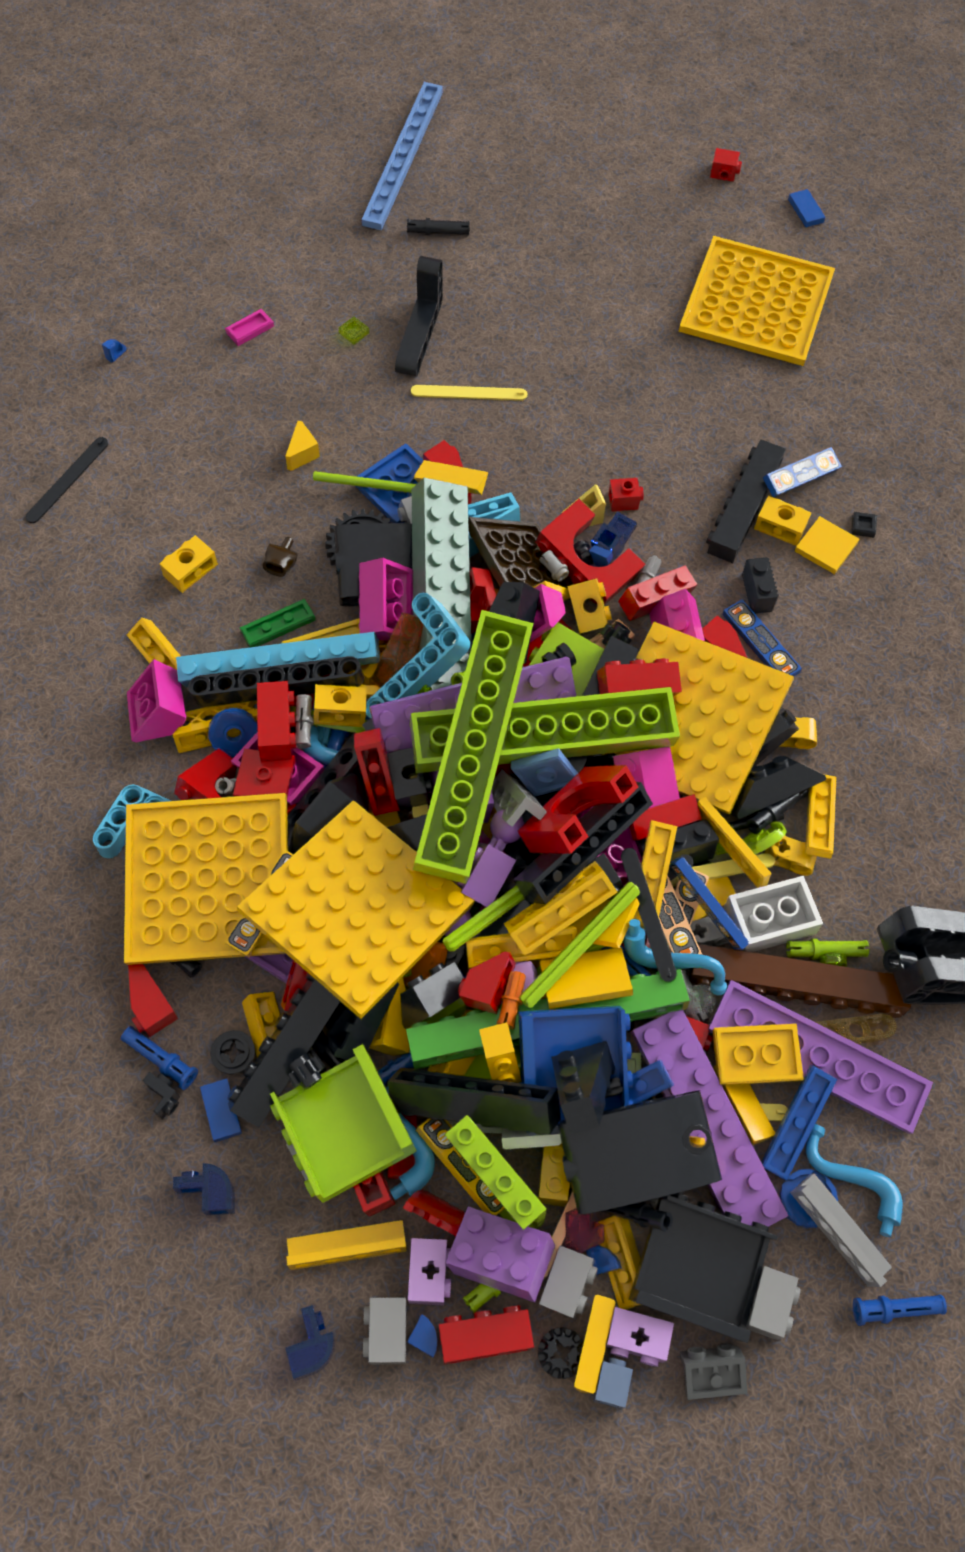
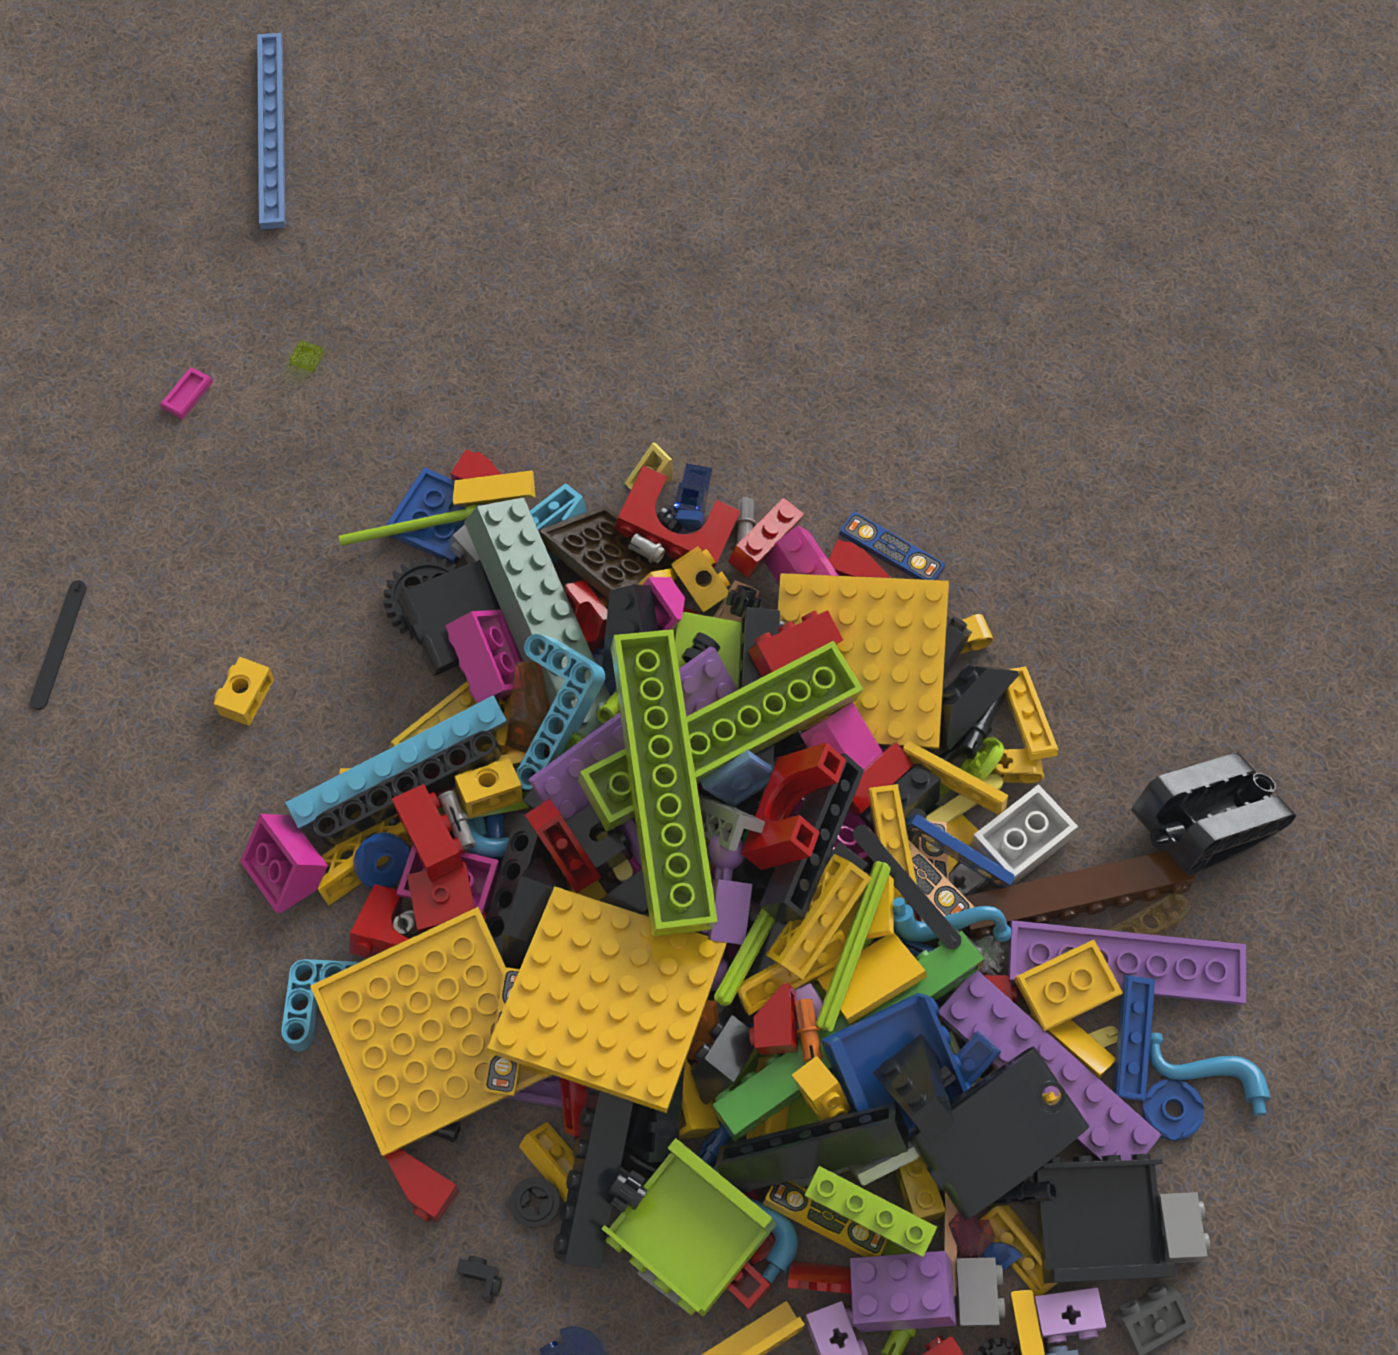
camera: 20 degrees left, 0 degrees up
(113, 349) = (42, 474): blue tile -> none
(153, 643) = (246, 796): yellow slope -> none
(168, 1065) = (476, 1239): blue pin -> none
(222, 1121) = (552, 1274): blue tile -> none
(277, 624) = (372, 721): green tile -> none
(279, 558) = (342, 647): dark brown piece -> none
(302, 447) = (312, 512): yellow slope -> none
(423, 316) = (379, 317): black beam -> none
(438, 226) = (348, 202): black pin -> none
(469, 392) = (465, 383): light yellow piece -> none
(625, 494) = (684, 440): red brick -> none
(725, 165) = (634, 24): red brick -> none
(745, 502) = (814, 401): black brick -> none
(757, 300) = (732, 170): yellow plate -> none
(760, 585) = (866, 489): black brick -> none
(782, 520) = (850, 417): yellow brick -> none
(802, 472) = (859, 349): tile -> none
(806, 208) = (740, 45): blue tile -> none
(816, 948) = (1080, 853): lime pin -> none
(827, 545) = (915, 419): yellow tile -> none
(834, 959) = (1101, 858): clear neon green tile -> none
(841, 1231) = (1218, 1128): light grey fence -> none
(864, 524) = (944, 383): black tile -> none
(886, 1309) = (1289, 1187): blue pin -> none

